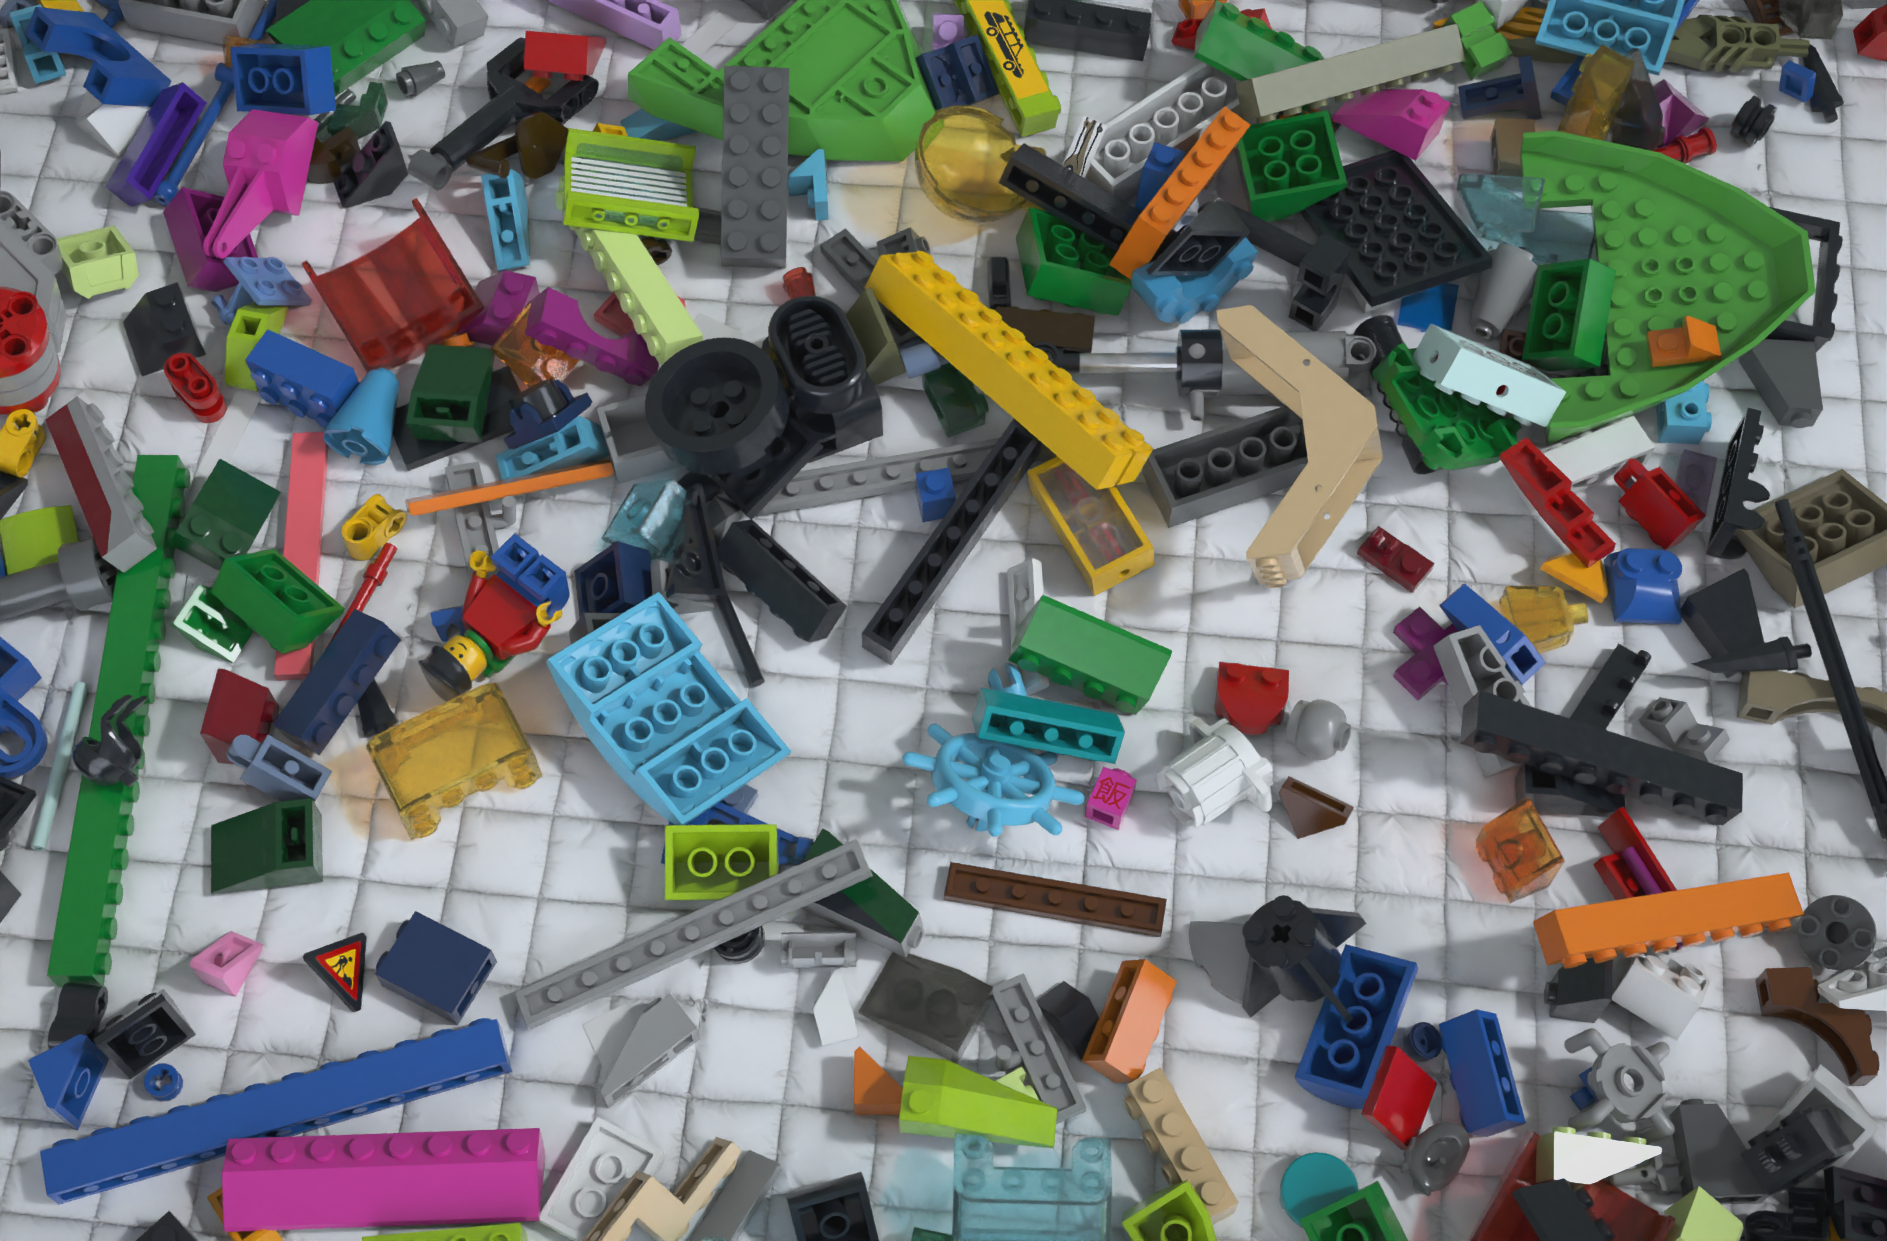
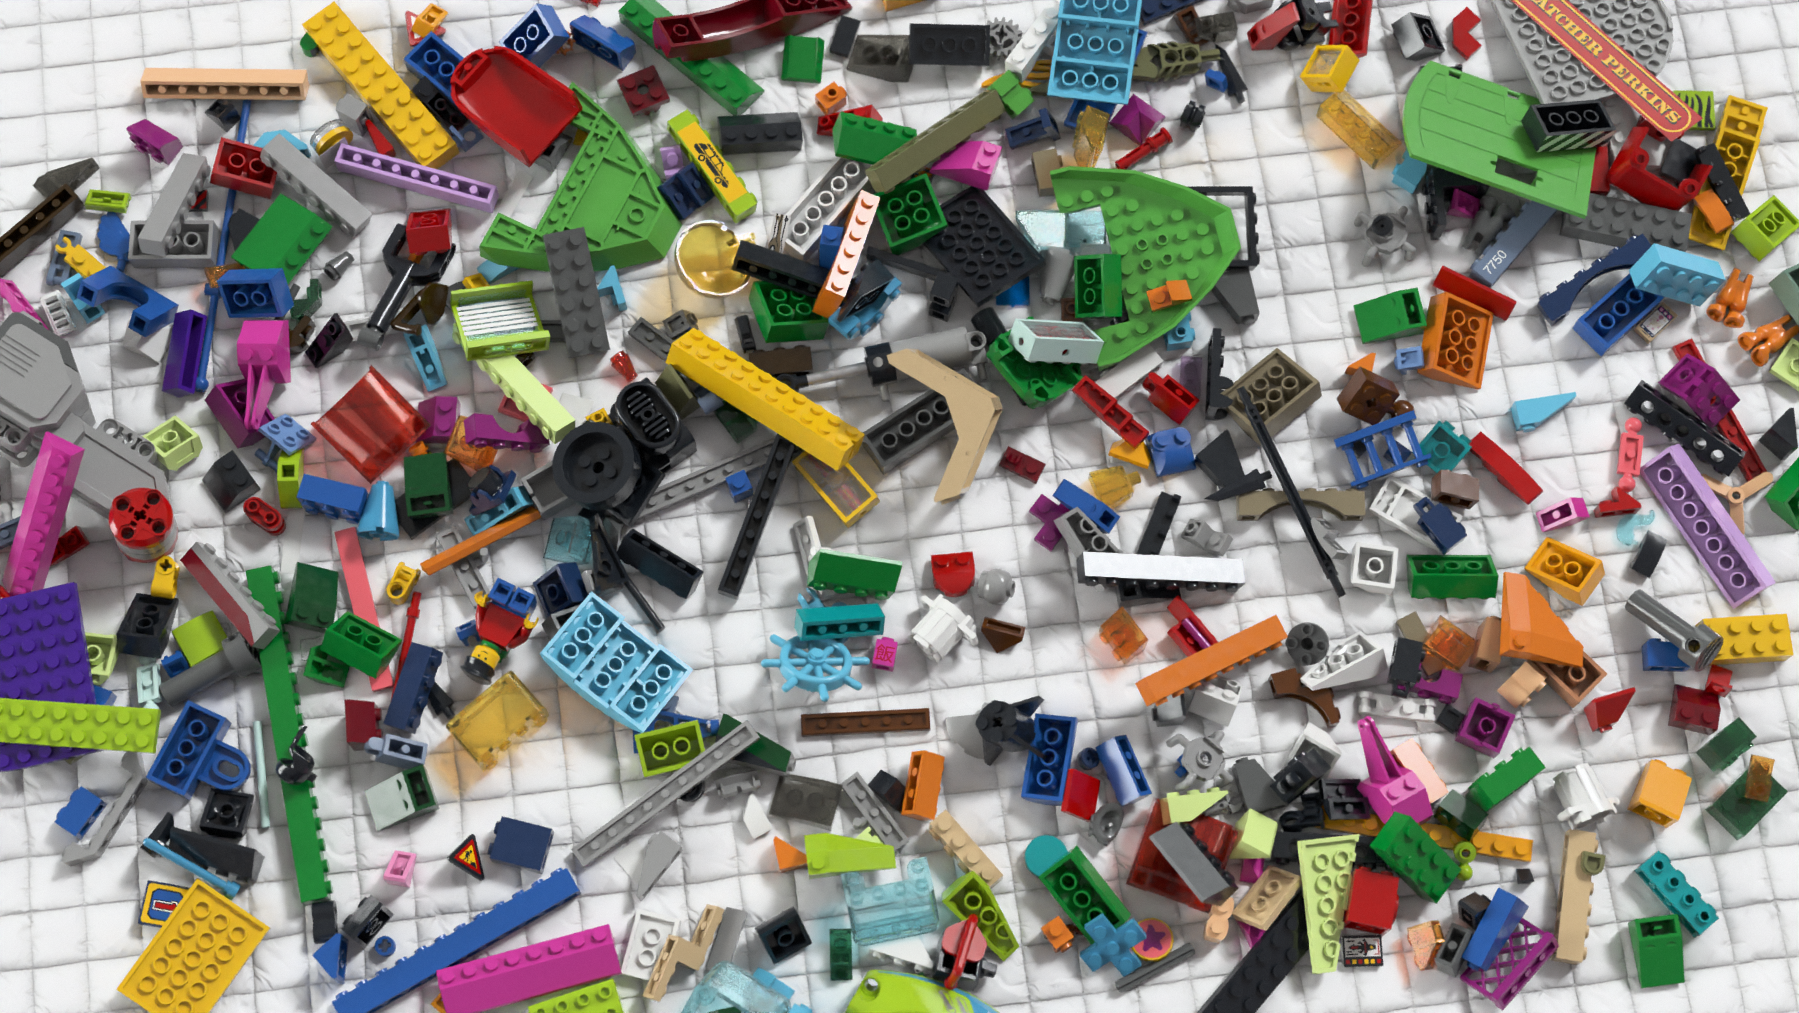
camera: 15 degrees left, 10 degrees up
(1639, 114) = (1121, 133): clear smoke slope -> none

